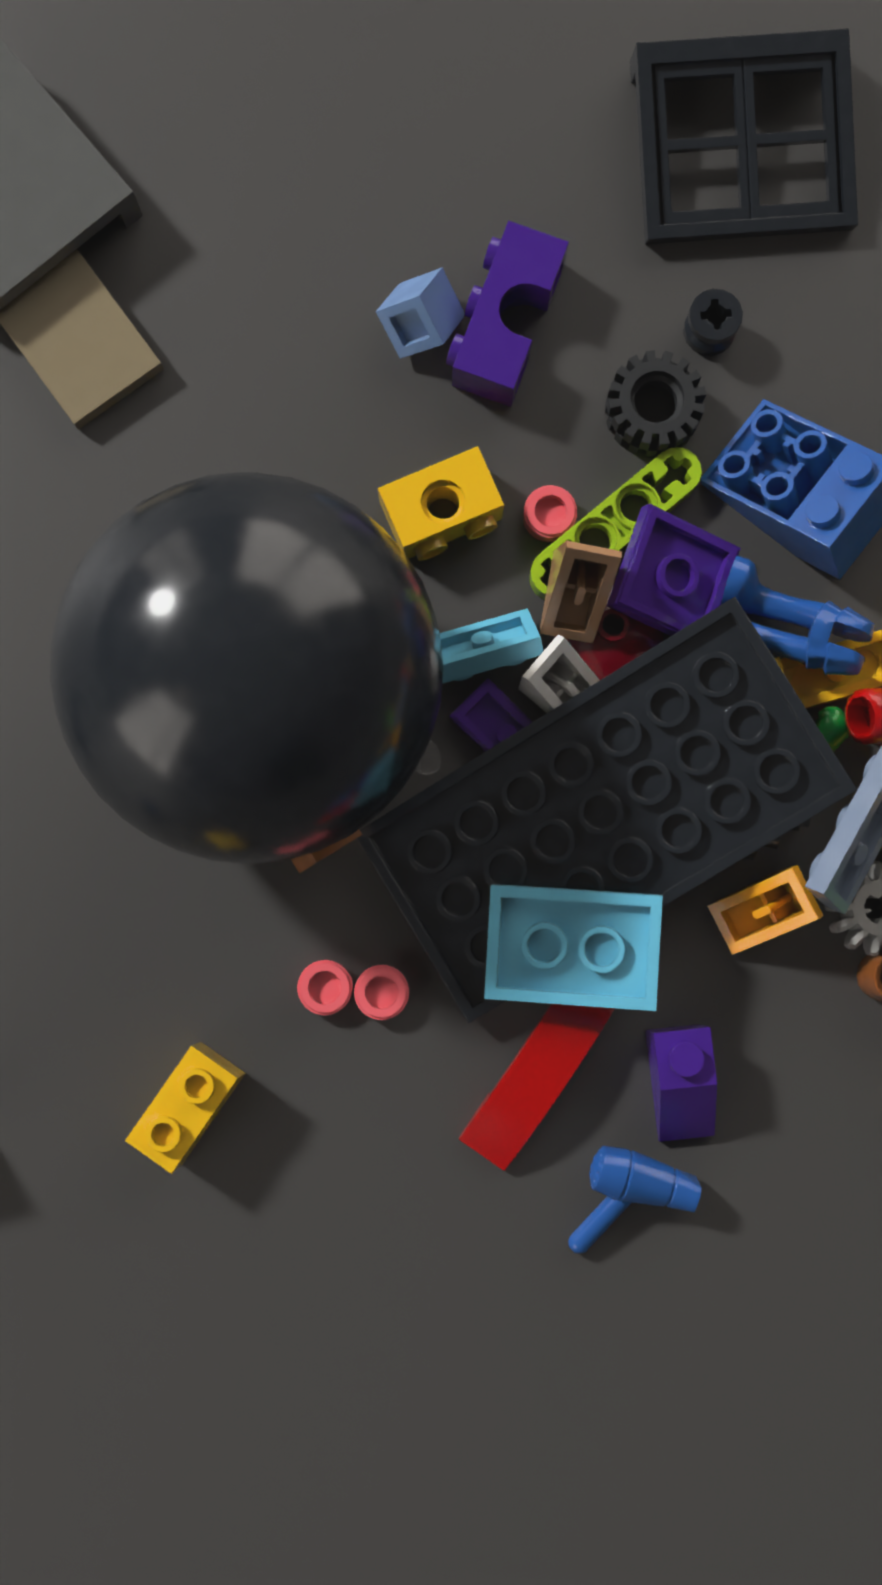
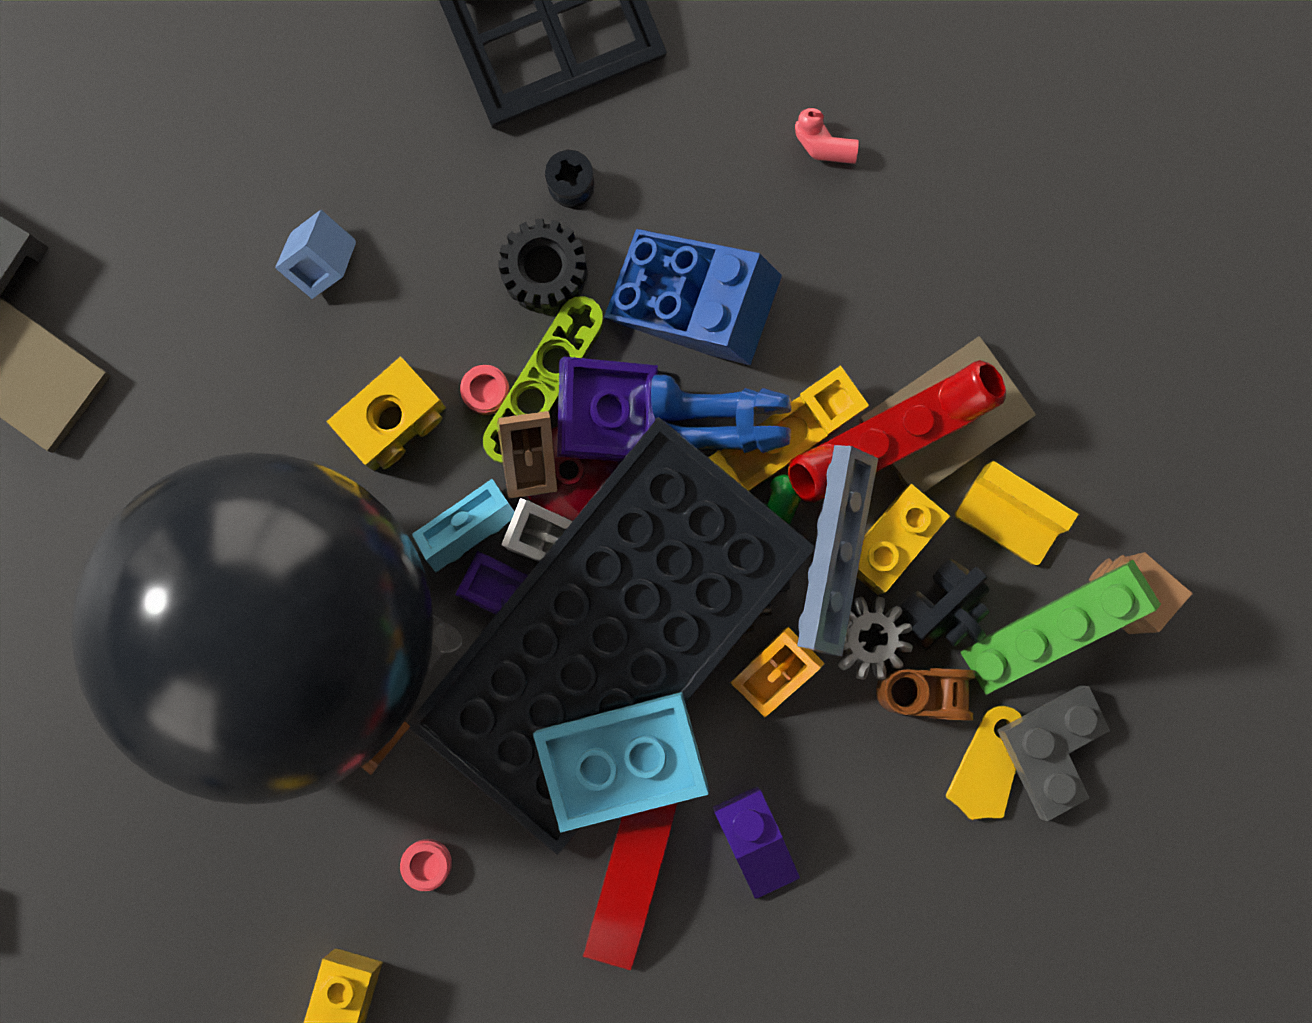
camera: 15 degrees left, 0 degrees up
(381, 992) = (475, 852): coral tile -> none
(522, 271) = (388, 188): dark purple arch -> none
(629, 1179) = (743, 939): blue piece -> none

